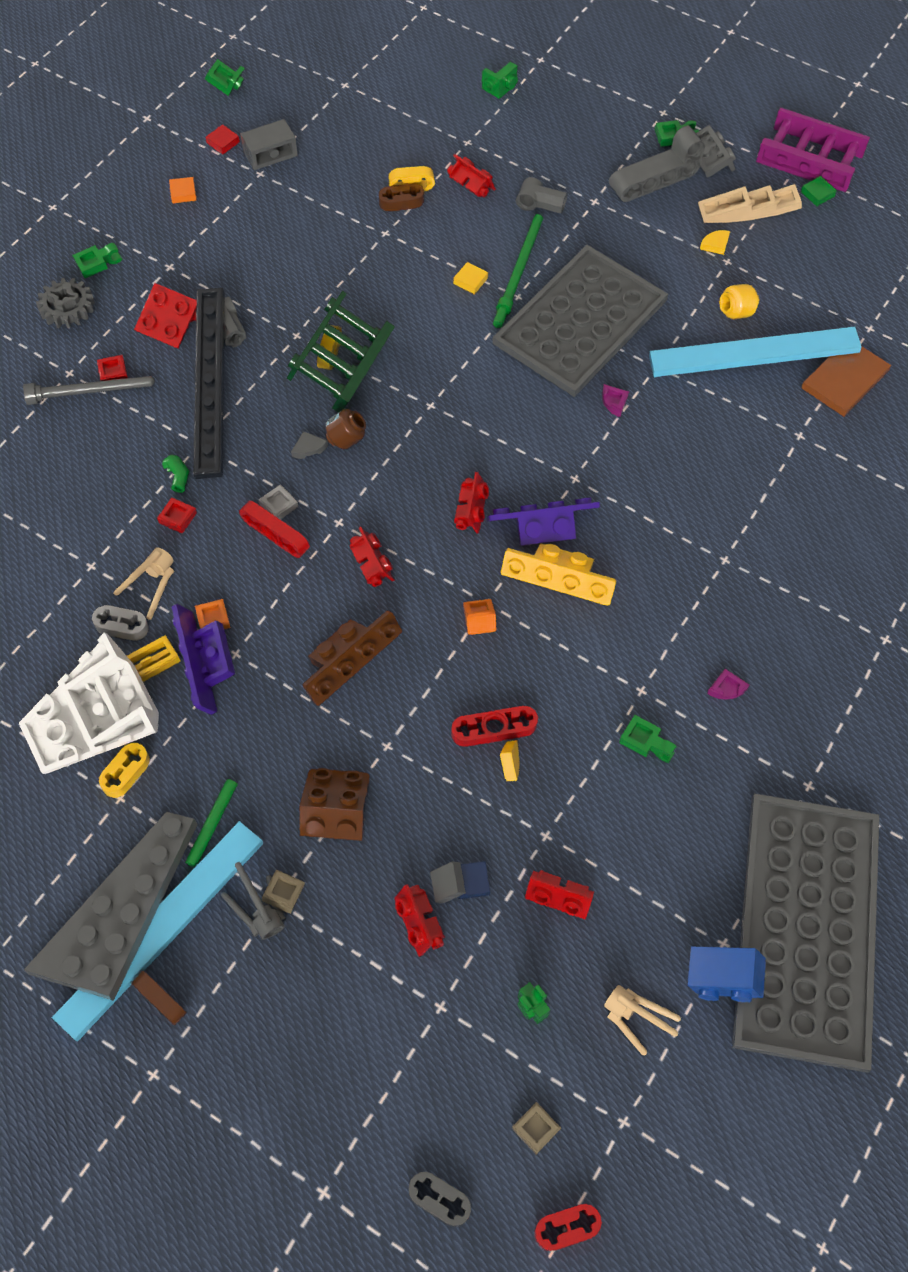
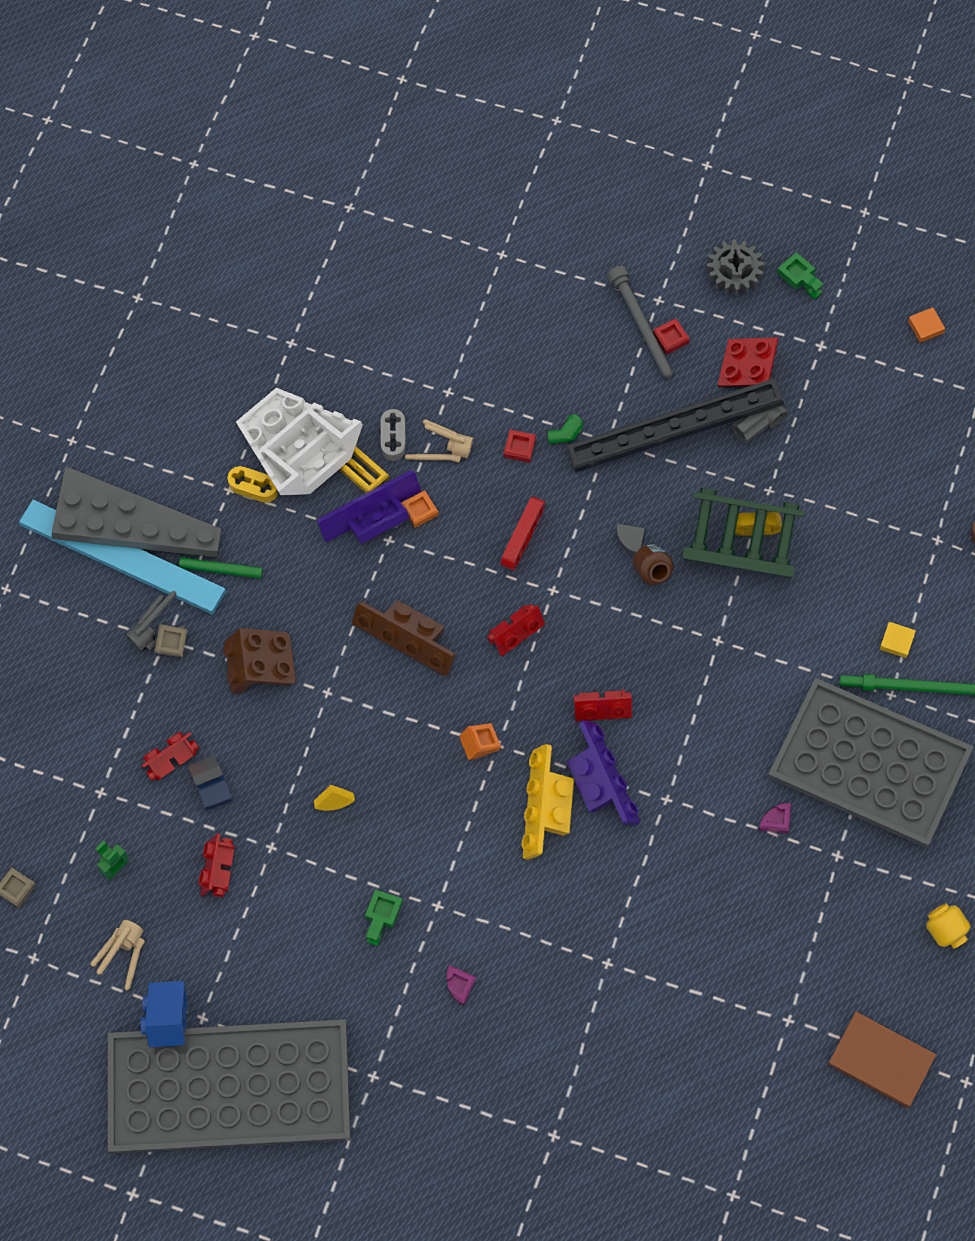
camera: 80 degrees right, 5 degrees up
(158, 997) = (62, 571): reddish brown beam -> none
(278, 502) = (557, 530): light grey tile -> none
(501, 715) = (350, 764): red beam -> none
(754, 351) = (882, 955): medium azure tile -> none

